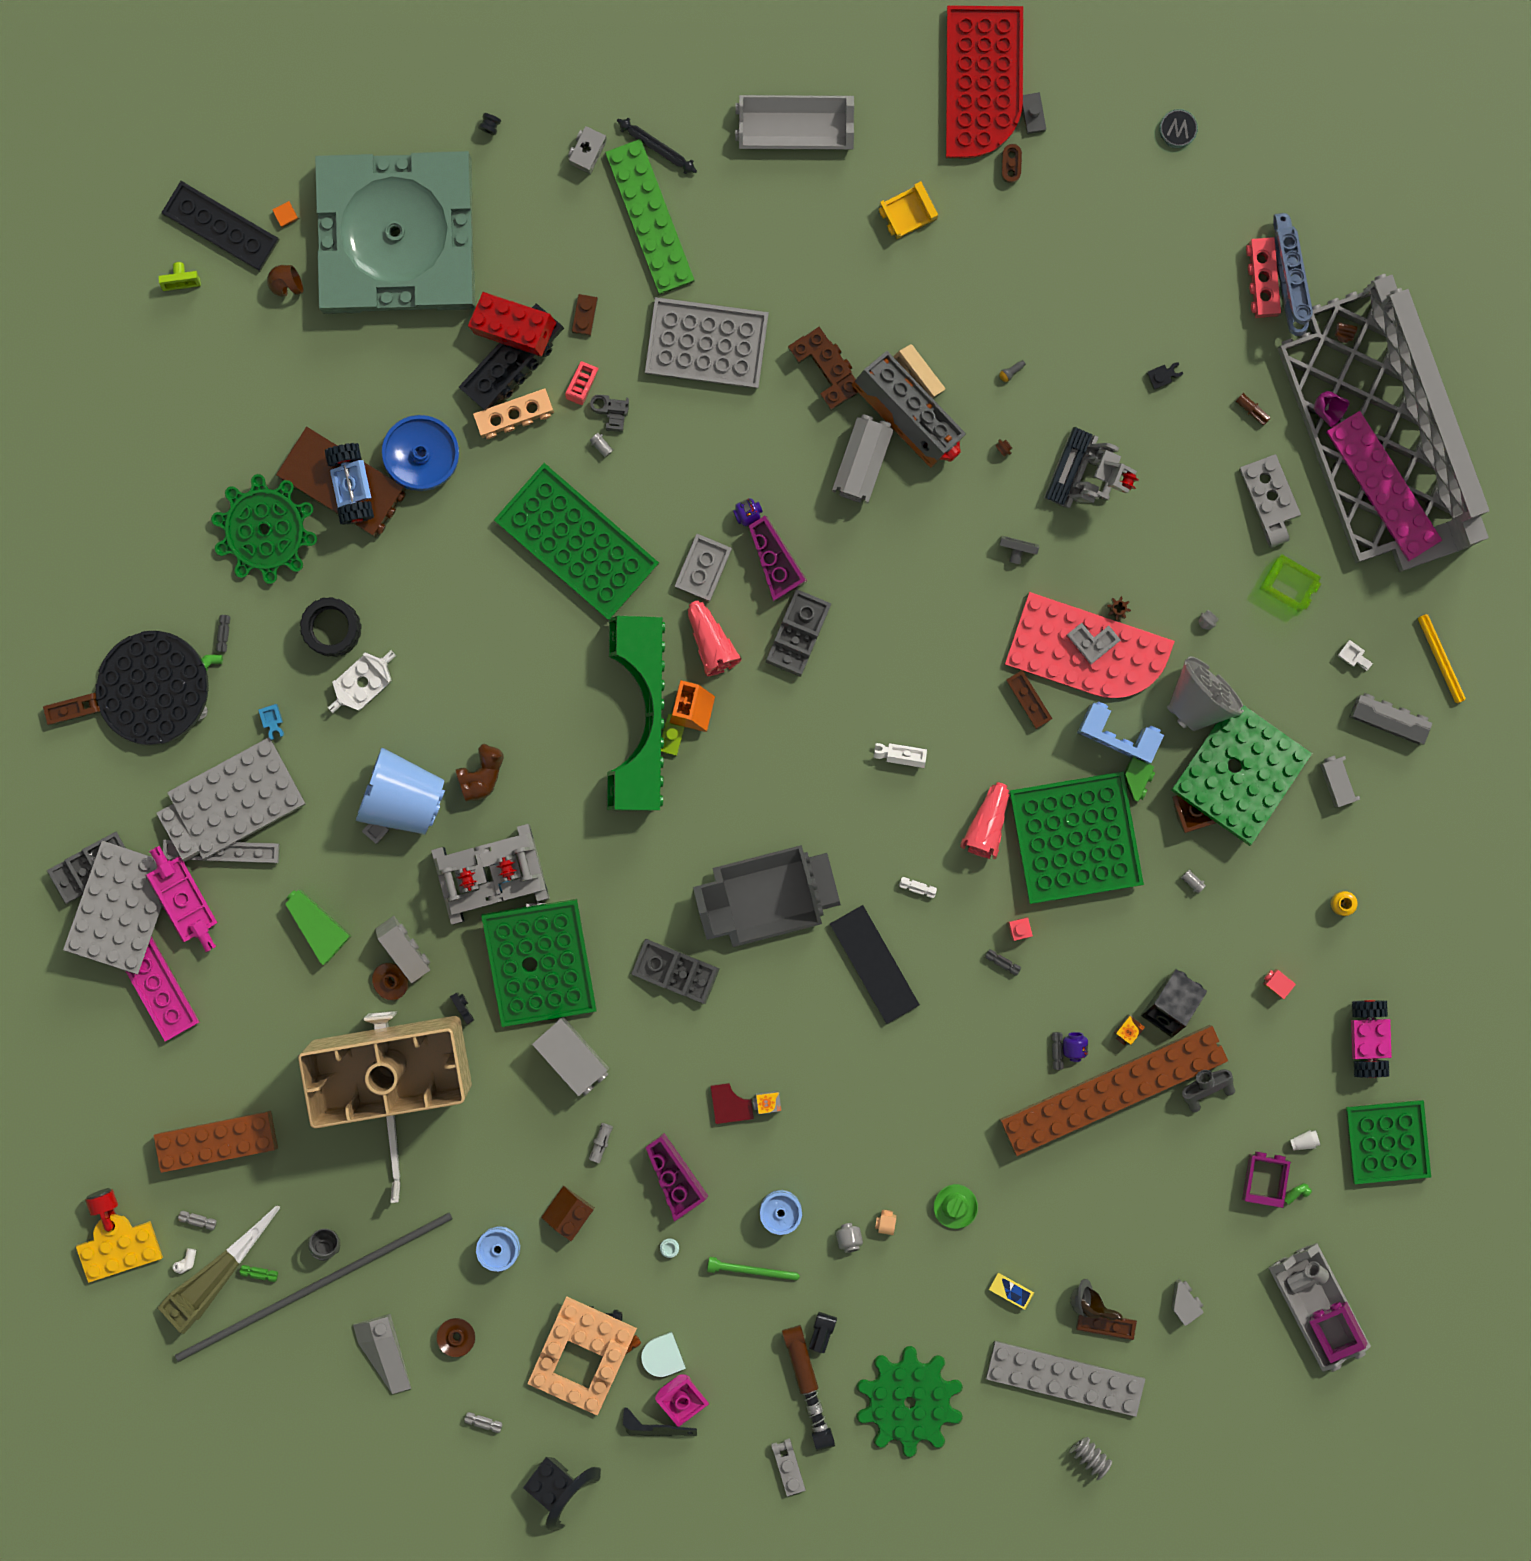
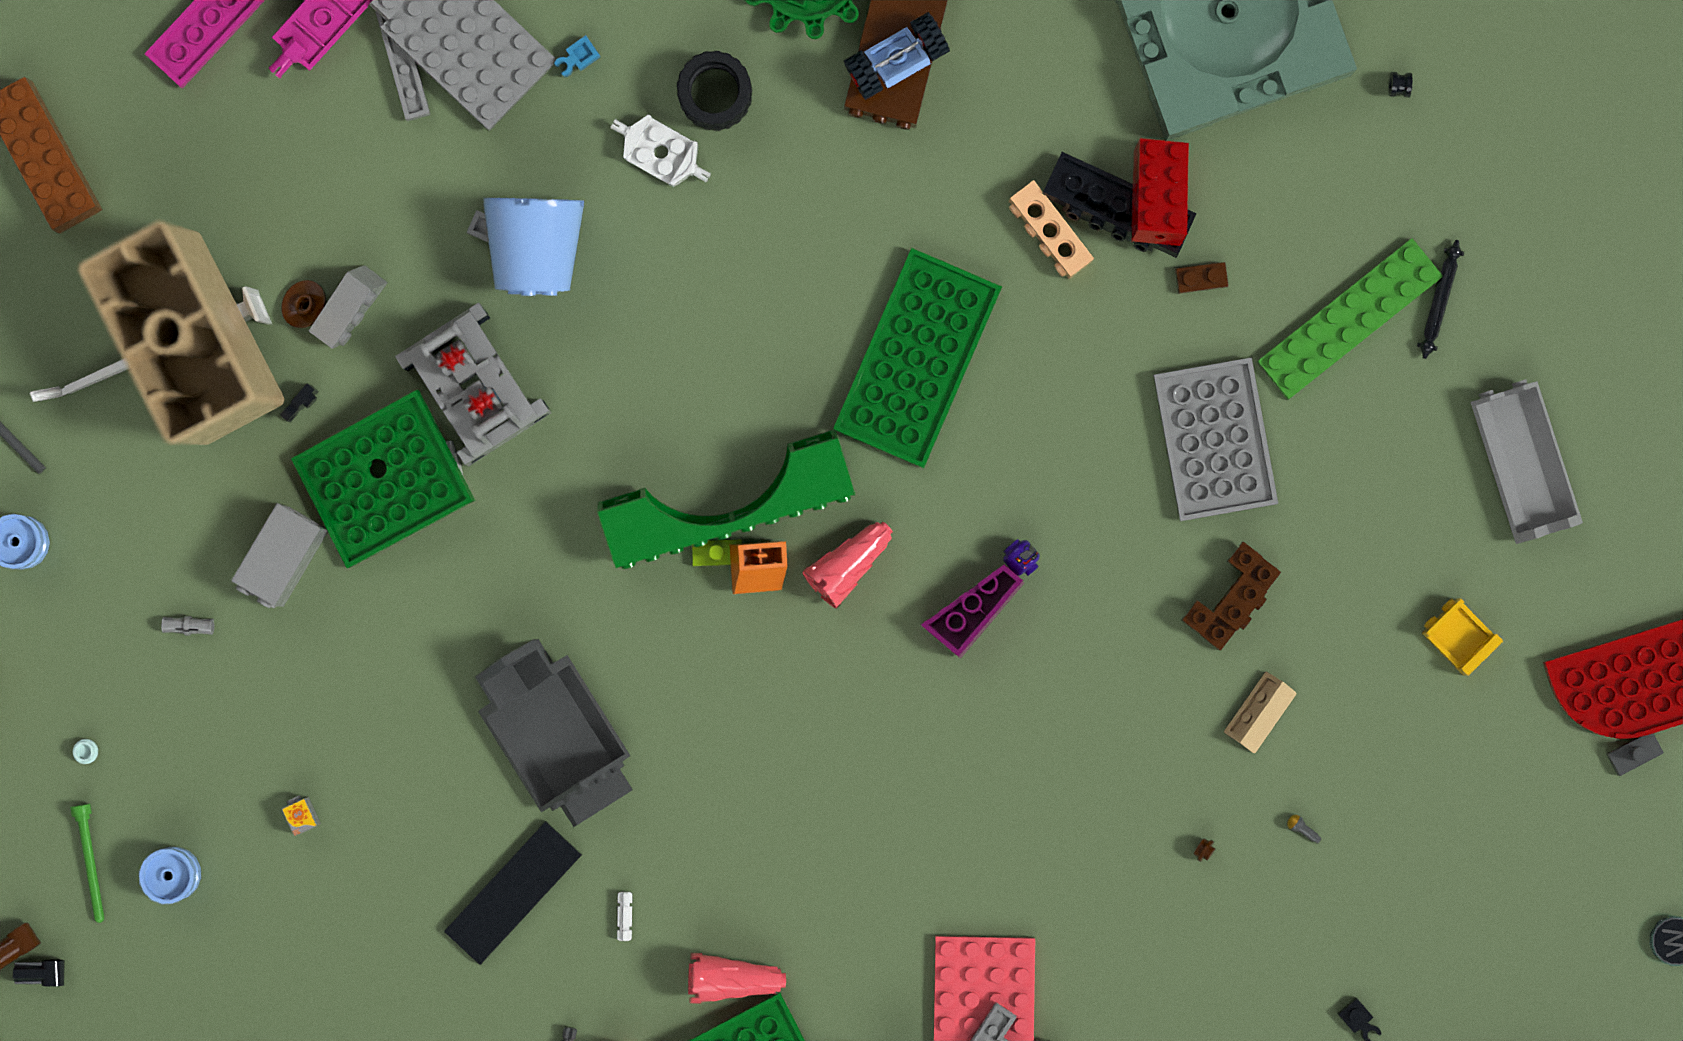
camera: 75 degrees right, 0 degrees up
(319, 929) = (343, 193): bright green slope -> none
(420, 453) = (964, 131): blue dish -> none
(482, 782) = (583, 338): reddish brown animal -> none
(567, 1213) = (88, 613): reddish brown slope -> none
(577, 398) = (1095, 300): coral slope -> none
(596, 143) = (1394, 220): light grey brick -> none
(601, 445) = (1047, 349): light grey pin -> none
(616, 409) = (1097, 354): dark grey piece -> none
(675, 971) = (426, 650): dark grey slope -> none
(675, 1178) = (172, 731): magenta wedge -> none
(703, 567) = (935, 524): light grey plate -> none
(729, 1106) = (282, 769): dark red tile -> none
(798, 633) = (892, 668): dark grey slope -> none
(849, 1238) = (165, 969): light grey head -> none
(863, 459) = (1133, 679): light grey brick -> none
(886, 1222) = (199, 1009): light nougat plate -> none
(901, 754) = (782, 844): white plate -> none
(909, 410) = (1212, 718): dark grey piece -> none
(1011, 164) = (1562, 747): reddish brown plate -> none
(1018, 548) = (1085, 907): dark grey tile -> none
(1029, 699) = (901, 980): reddish brown plate -> none
(1077, 453) = (1211, 941): light grey container -> none

